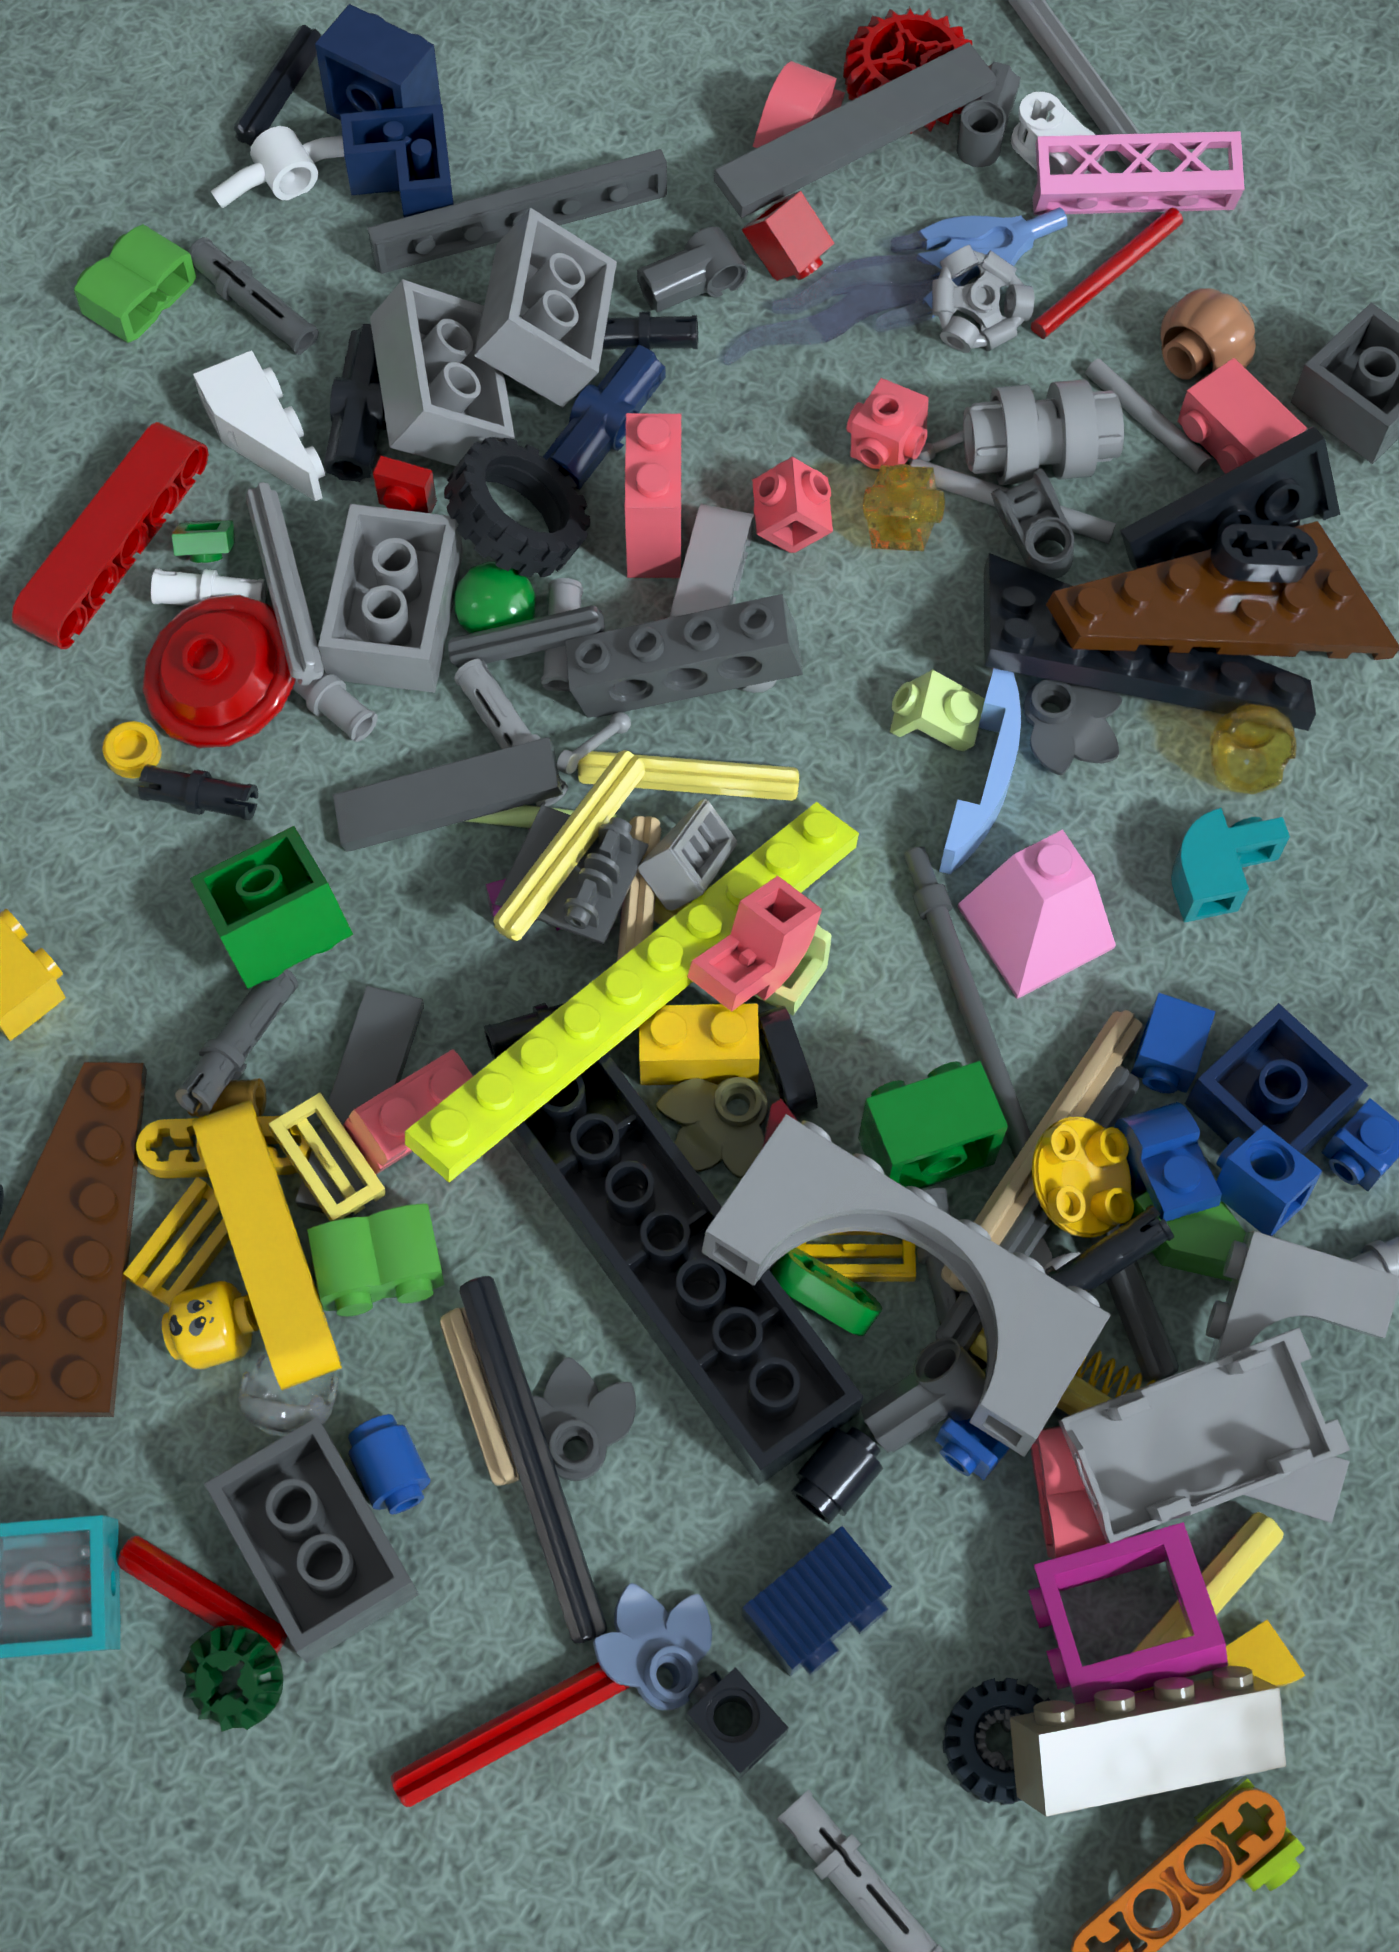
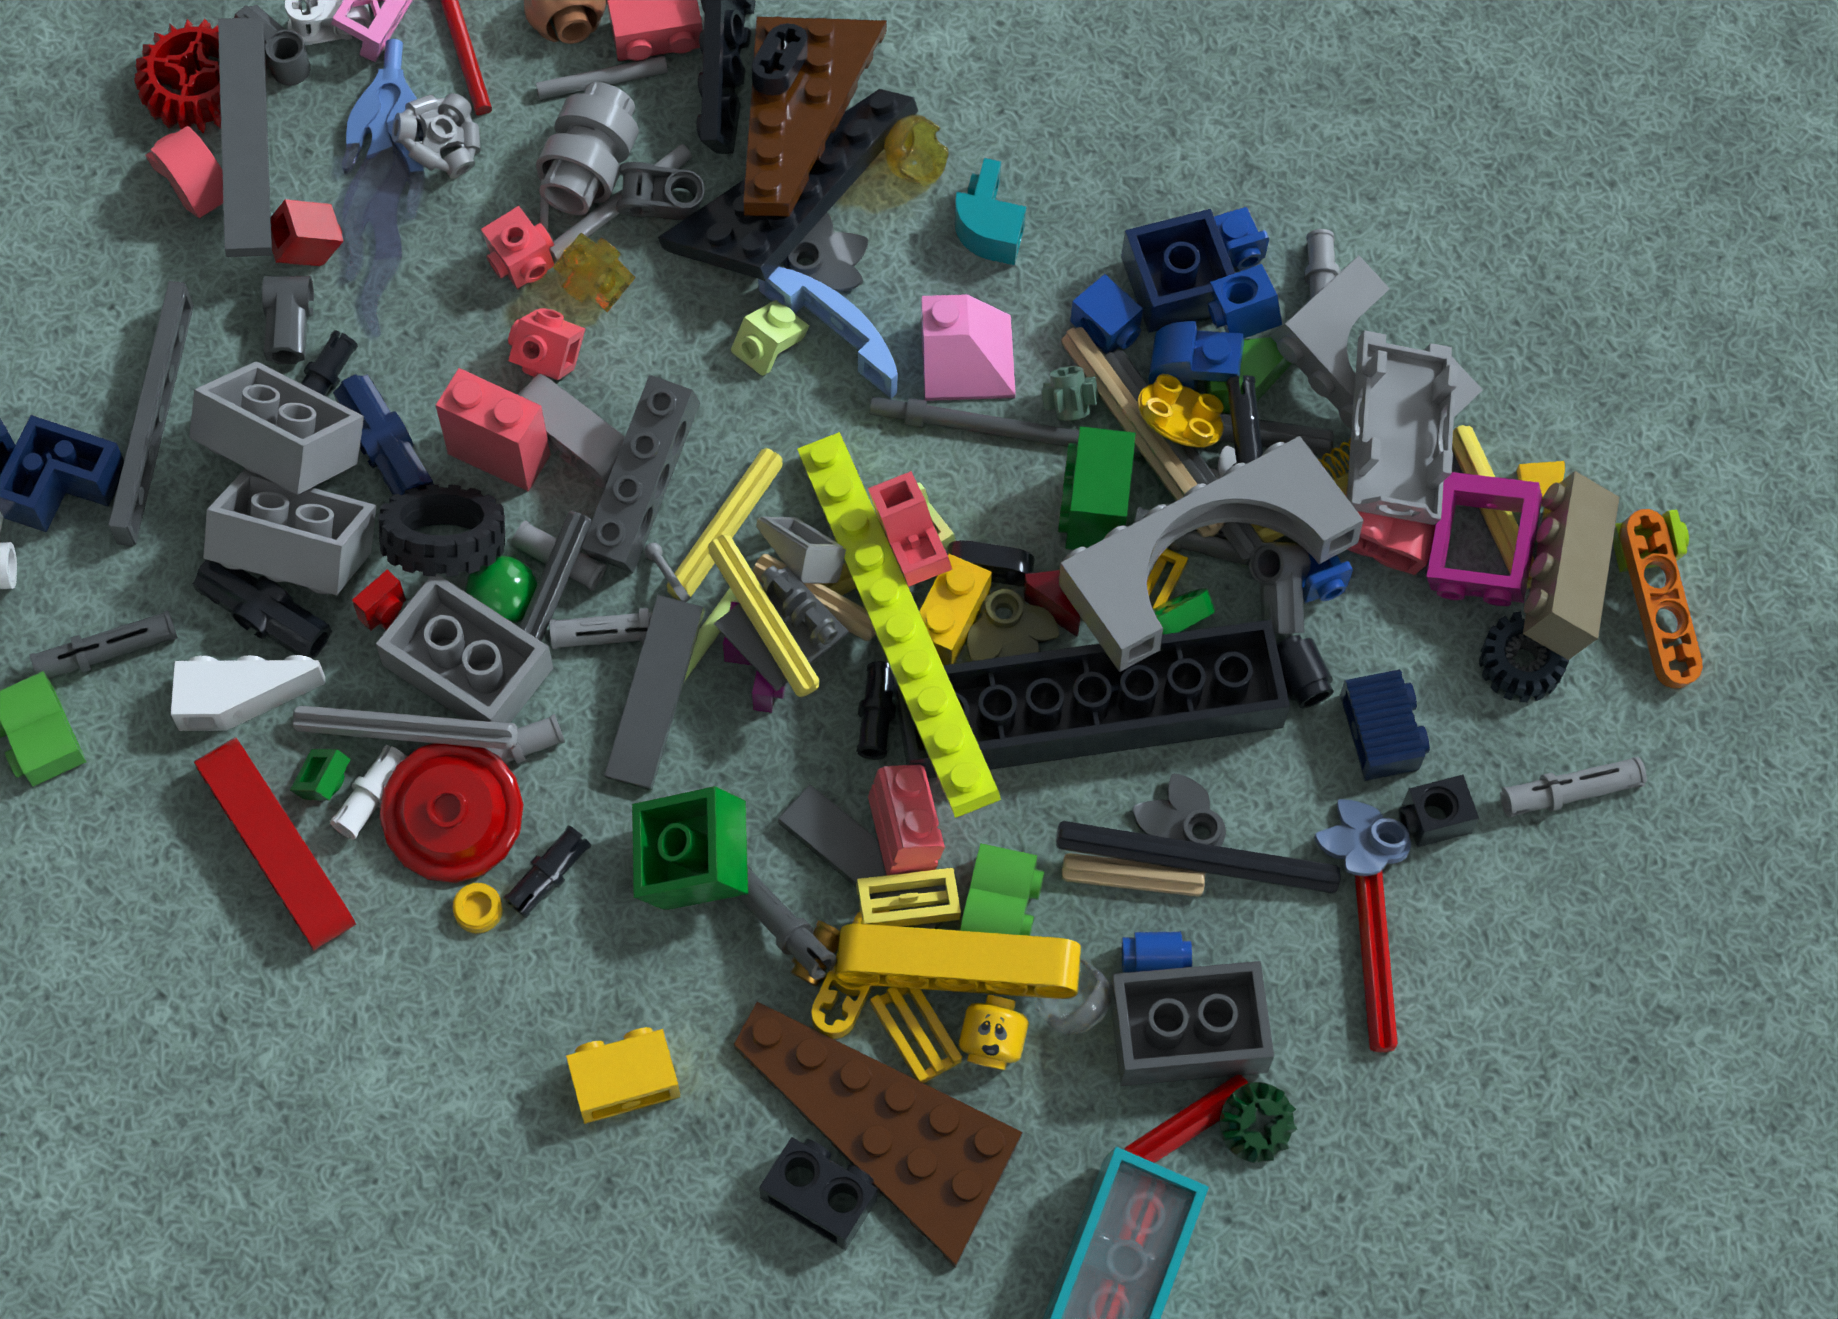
camera: 65 degrees left, 0 degrees up
(1046, 1047) = (1069, 393): none -> sand green gear

